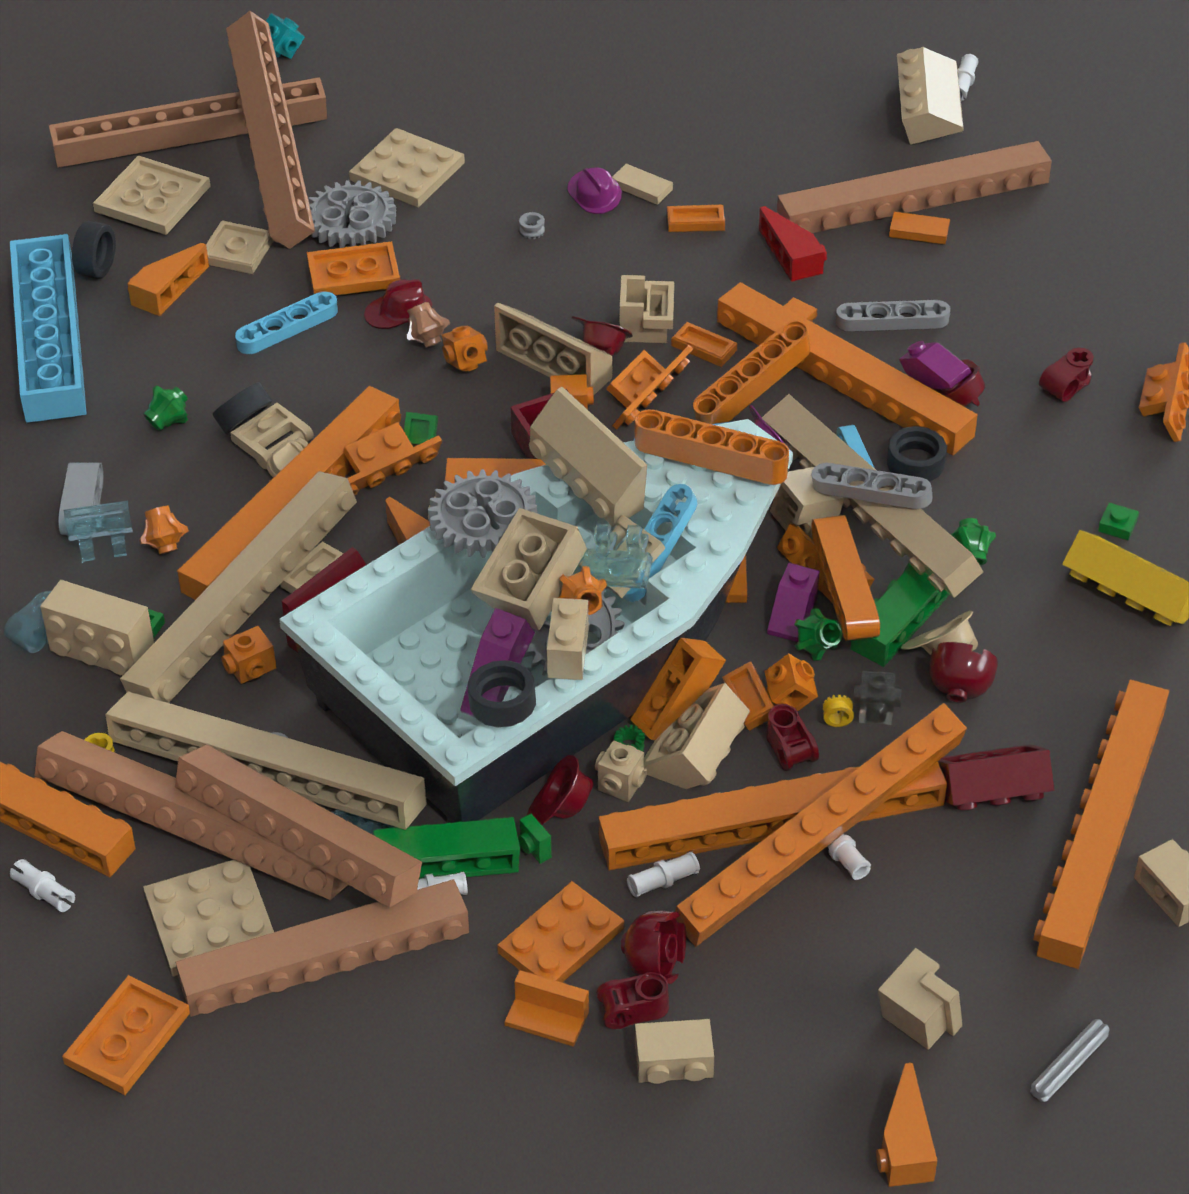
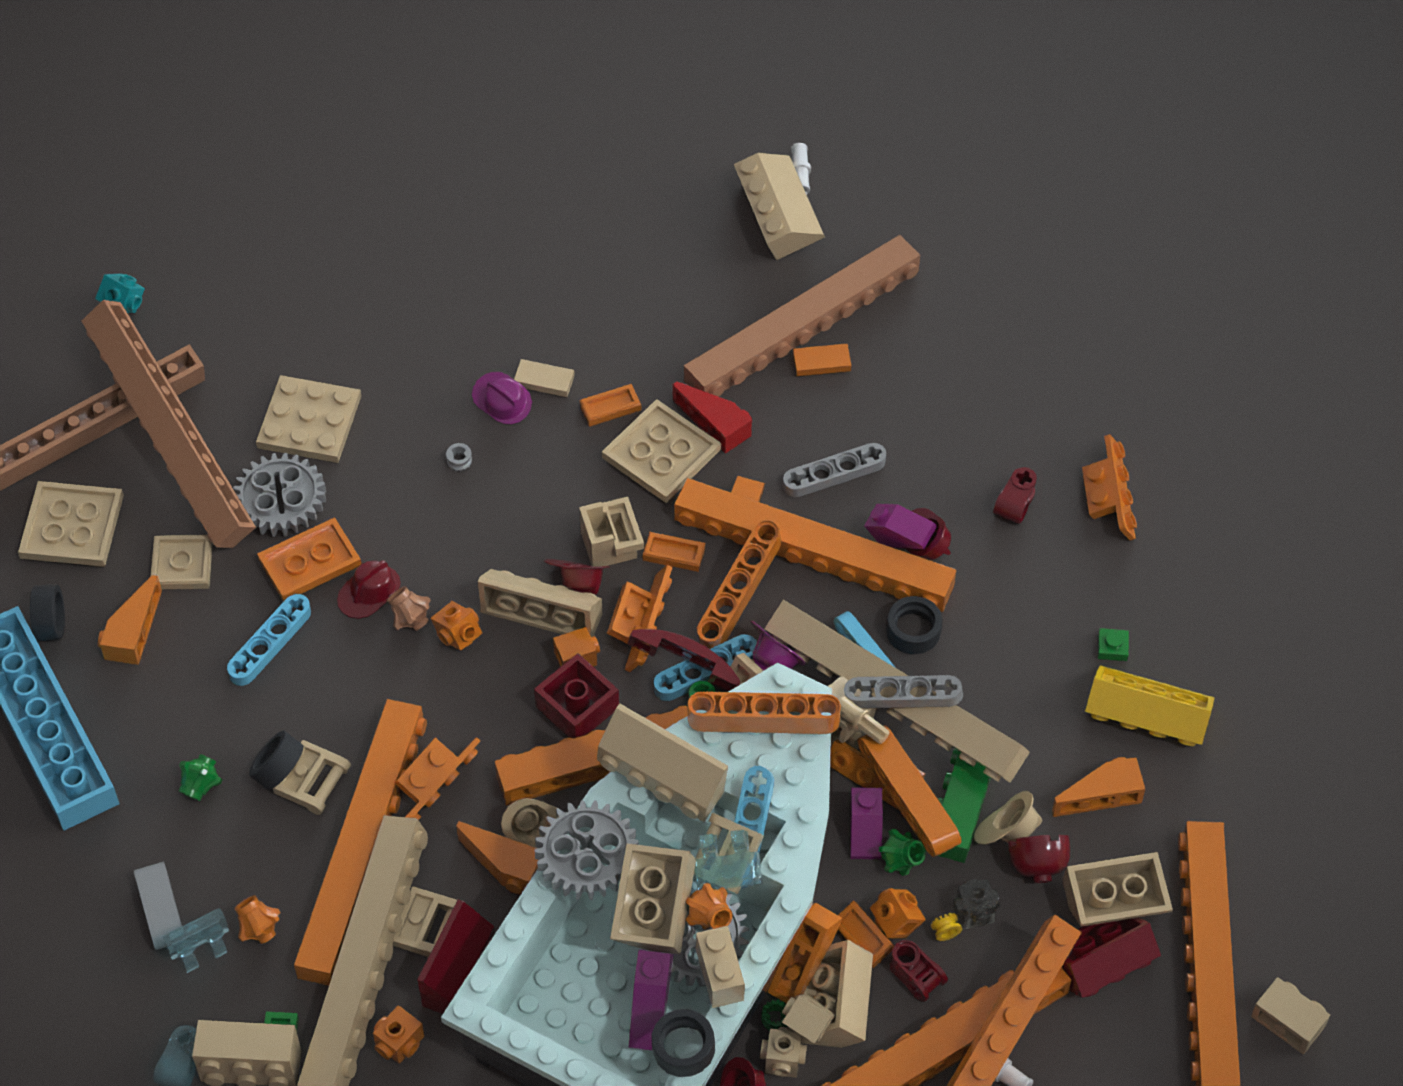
camera: 20 degrees left, 10 degrees up
(284, 455) = (338, 800): tan arm -> none
(420, 427) = (451, 729): green plate -> none
(645, 395) = (650, 639): none -> dark red slope
(653, 735) = (807, 1017): none -> tan slope
(726, 258) = (661, 450): none -> tan plate
(818, 499) = (861, 720): none -> tan axle
(974, 538) = (997, 710): green rock -> none
(1030, 716) = (1116, 889): none -> tan slope
(1055, 635) = (1109, 786): none -> orange slope

